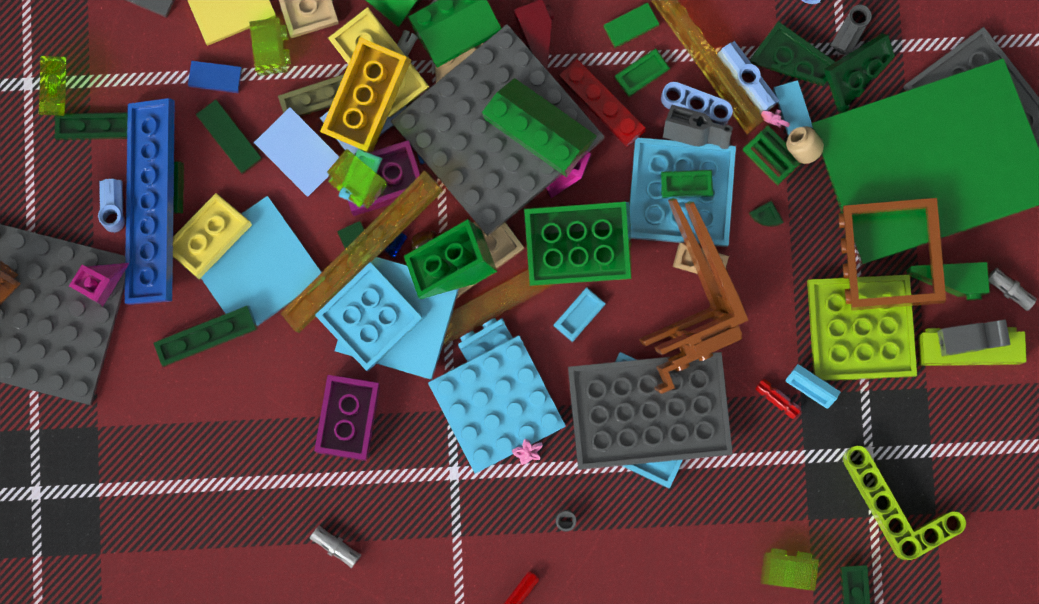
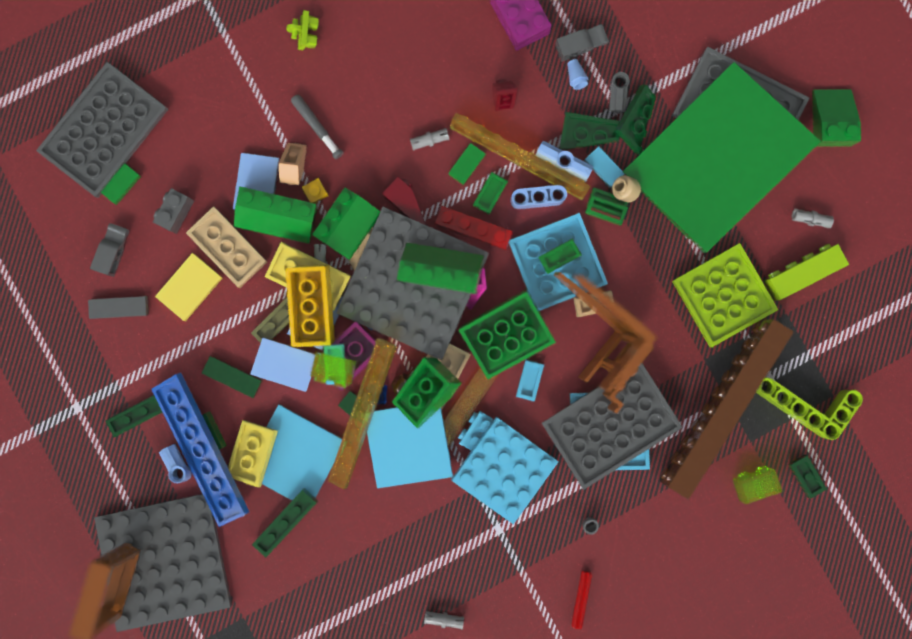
camera: 15 degrees left, 5 degrees up
(52, 85) = (92, 403): clear neon green brick -> none
(98, 281) = (192, 523): dark pink slope -> none
(215, 76) = (201, 340): blue tile -> none
(269, 47) = (227, 301): clear neon green brick -> none
(347, 418) = (409, 531): magenta brick -> none
(369, 316) = (389, 455): medium azure plate -> none
(527, 452) = (541, 492): bright pink plant -> none
(695, 128) = (546, 214): dark grey piece -> none
(766, 215) = (622, 249): dark green tile -> none
(774, 119) = (596, 181): bright pink plant -> none
(778, 398) = (692, 371): red axle -> none
(796, 457) = (725, 407): none -> reddish brown brick
(812, 386) = (711, 352): medium azure tile -> none
(849, 268) = (753, 218): dark orange window -> none
(961, 279) = (777, 228): green slope -> none
(973, 337) = (807, 266): dark grey piece -> none

